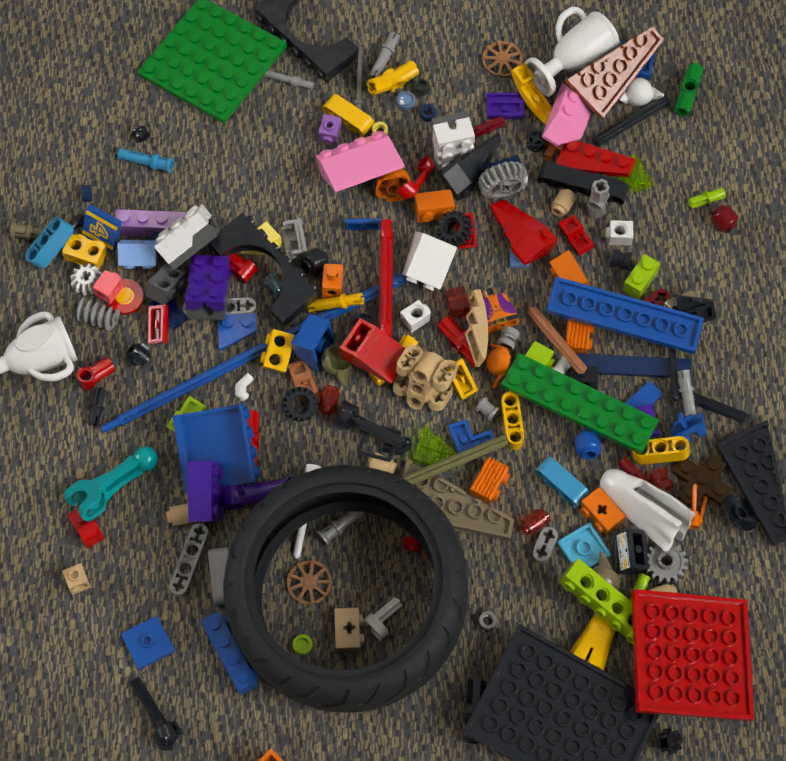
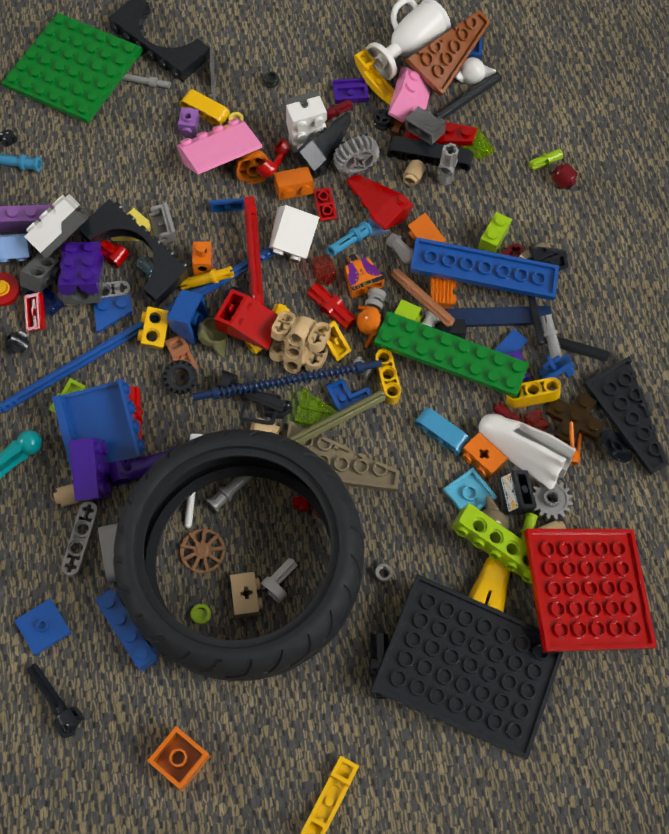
camera: 10 degrees left, 0 degrees up
(240, 387) = (120, 365): white arm -> none
(313, 261) = (182, 242): black head -> none
(329, 400) = (208, 371): clear red brick -> none
(386, 51) = (236, 50): light grey pin -> none
(393, 79) = (244, 73): yellow piece -> none
(405, 100) = (258, 92): medium blue tile -> none
(416, 308) = (281, 291): white brick -> none
(427, 107) = (281, 97): dark blue axle -> none
(446, 224) = (307, 197): black tyre -> none
(478, 327) = (346, 296): tan slope -> none
(482, 409) = (358, 367): none -> dark blue hose
(489, 480) = (371, 435): orange brick -> none
(493, 268) = (336, 247): none -> dark azure pin
(502, 57) = (343, 50): medium nougat wheel -> none
(535, 522) = (420, 472): clear red brick -> none
(540, 543) = (427, 491): light grey beam -> none
(542, 287) = (403, 250): none -> light grey piece
(575, 234) = (427, 200): red slope -> none
(579, 153) = (425, 125): none -> dark grey brick
(587, 445) = (462, 393): blue head -> none
(620, 258) = (473, 219): black wheel -> none
(625, 228) = (472, 190): white brick -> none
(669, 741) = (577, 677): black gear -> none
(686, 97) = (517, 65): green piece -> none

